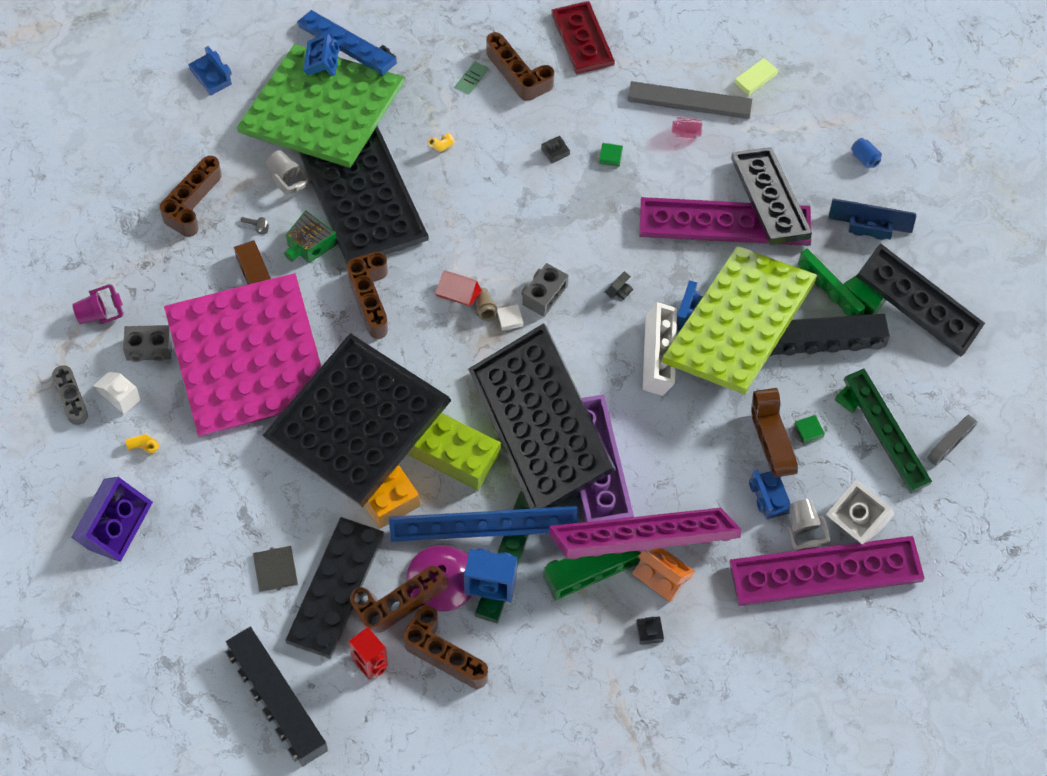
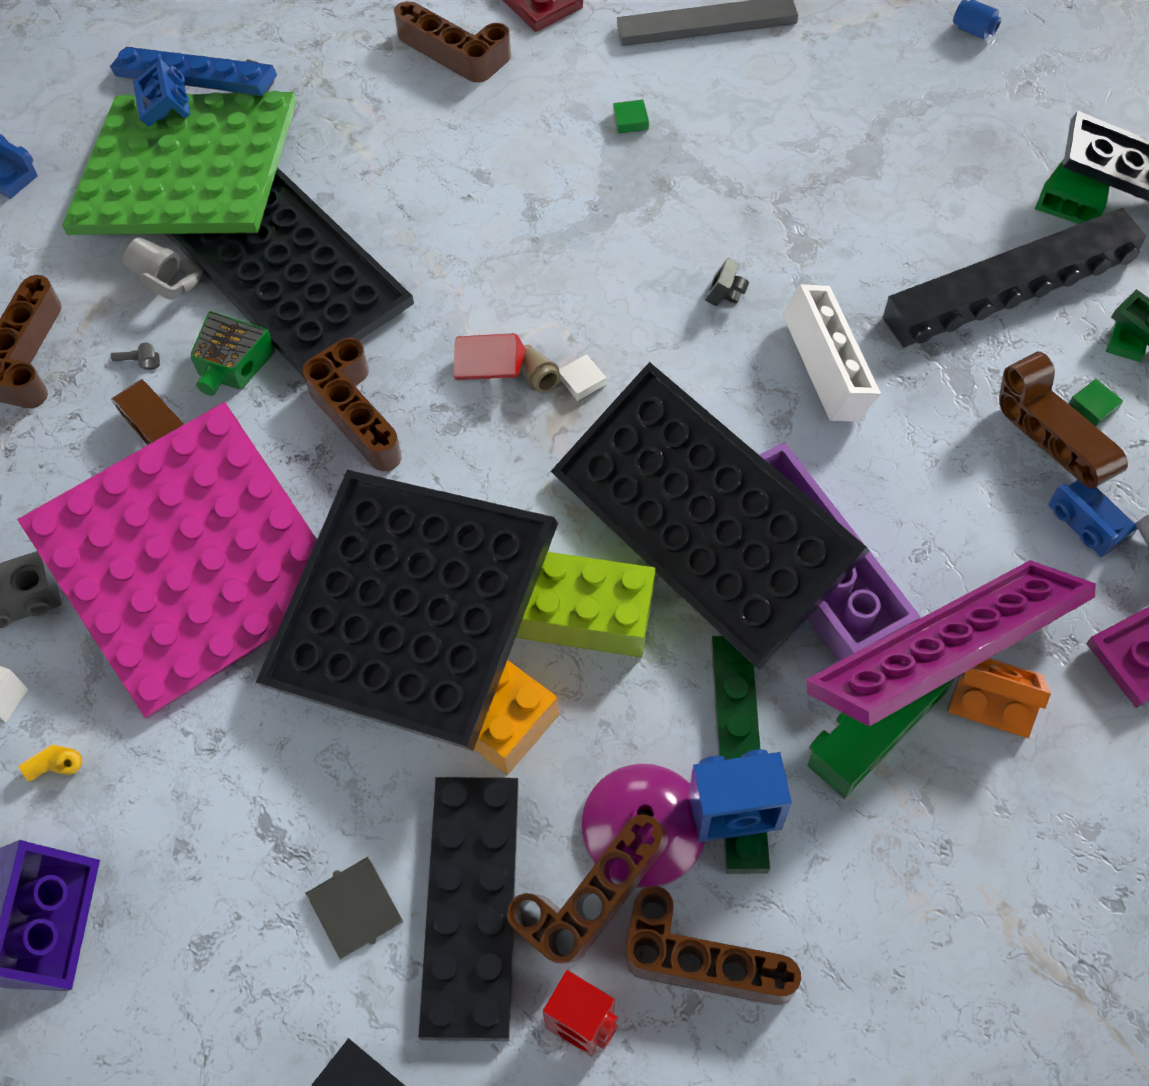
camera: 15 degrees left, 0 degrees up
(445, 143) = (383, 167): yellow arm -> none
(471, 77) = (391, 74): clear green sticker -> none
(479, 523) = (678, 712): blue plate -> none
(548, 291) = (617, 321): dark grey brick -> none
(555, 149) = (549, 130): pearl dark grey tile -> none
(649, 630) = (1020, 797): black tile -> none
(687, 127) = (722, 52): clear pink brick -> none
(688, 305) = (845, 282): blue bracket -> none
(705, 221) = (831, 156): magenta plate -> none
(740, 320) = (929, 279): lime plate -> none
(771, 196) = (885, 102): plate -> none
(831, 284) = (1021, 194): green plate -> none
(872, 219) = (1029, 96): dark blue bracket -> none

